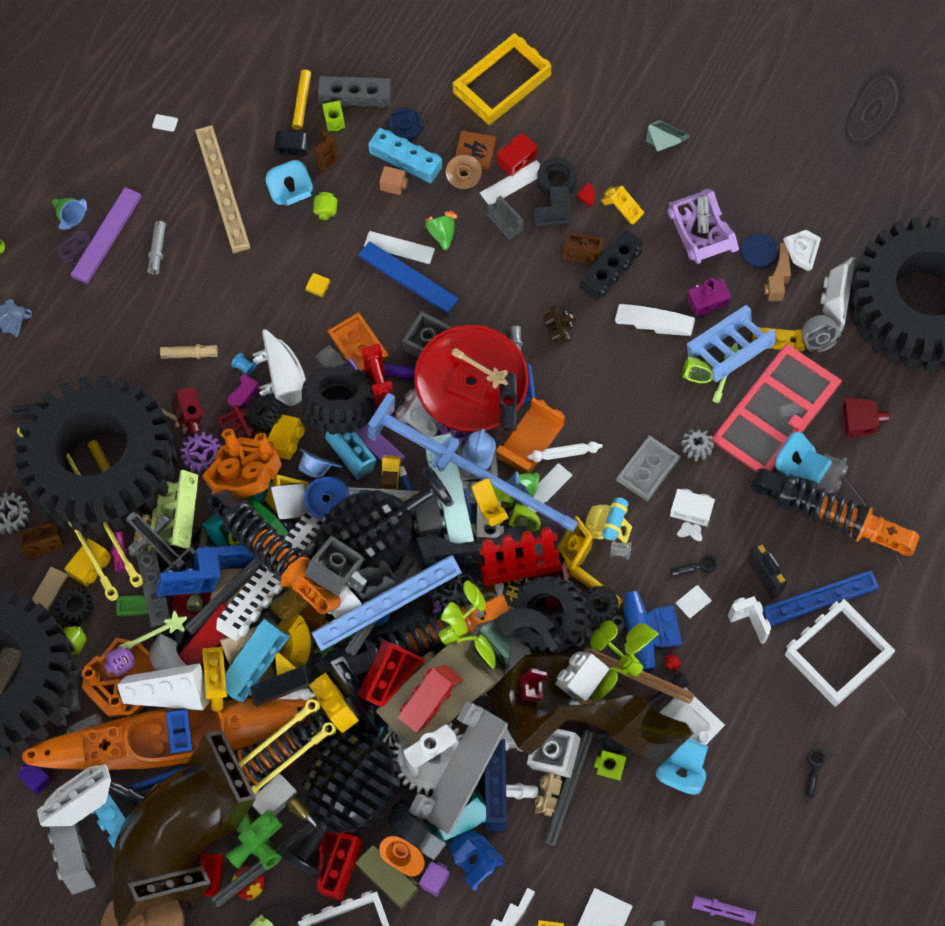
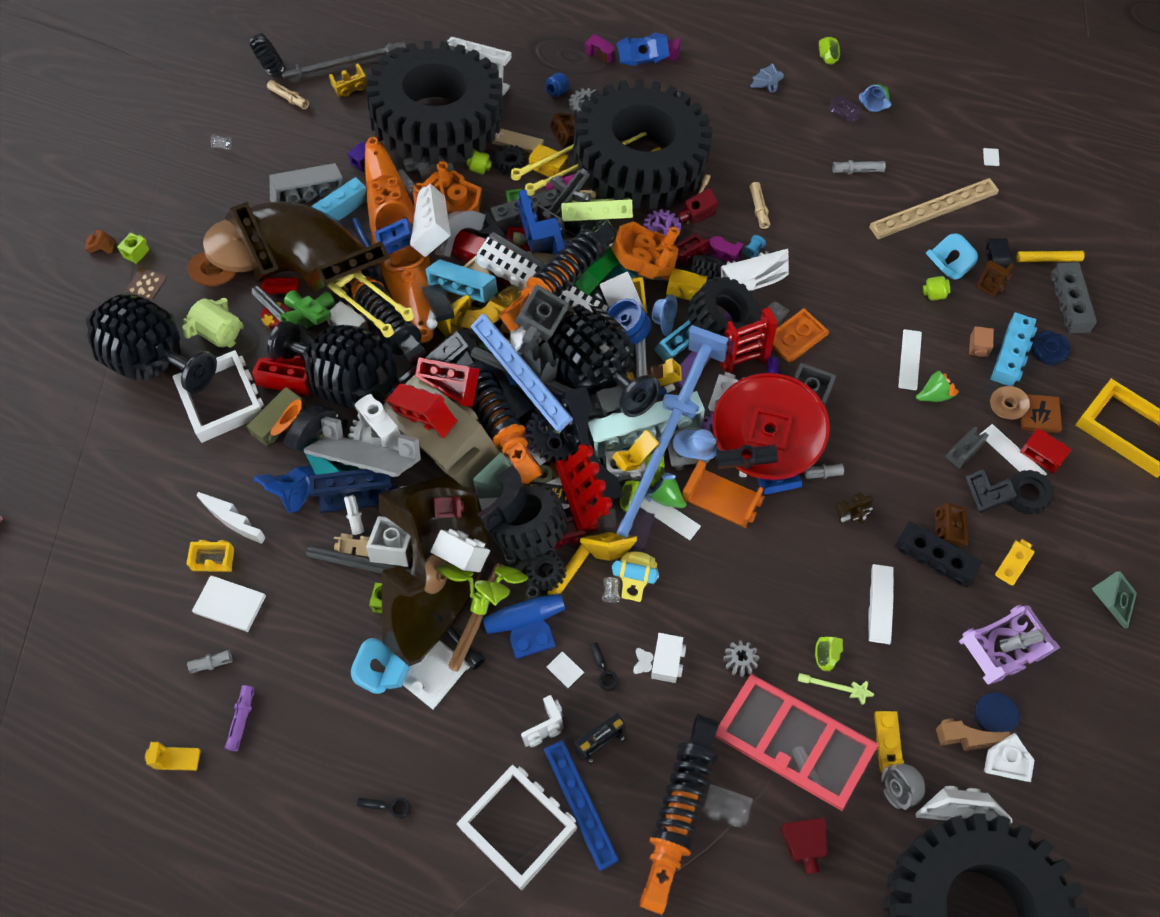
camera: 85 degrees right, 5 degrees down
(76, 798) = (333, 173): white wedge -> none
(106, 235) = (863, 130): medium lavender tile -> none
(119, 661) = (456, 188): medium lavender head -> none
(126, 792) = (348, 216): black pin -> none
(172, 623) = (494, 221): yellowish green piece -> none
(214, 676) = (443, 251): yellow piece -> none
(317, 285) = (851, 295): yellow tile -> none
(331, 110) = (1039, 283): lime brick -> none
(333, 703) = (405, 335): yellow arch -> none
(408, 277) = (876, 370): blue tile -> none
(434, 878) = (274, 454): medium lavender brick -> none
(458, 627) = (487, 412): lime plant -> none
(495, 377) = (771, 439): tan piece -> none
(564, 451) = (712, 528): white wheel -> none
(587, 194) = (1018, 525): red tile -> none
(648, 468) = (708, 612): light grey tile -> none
(672, 662) = (495, 650): red plate -> none
(708, 297) = (922, 658): magenta brick -> none
(722, 330) = (880, 672): light blue fence -> none
(812, 465) = (729, 782): medium azure piece -> none

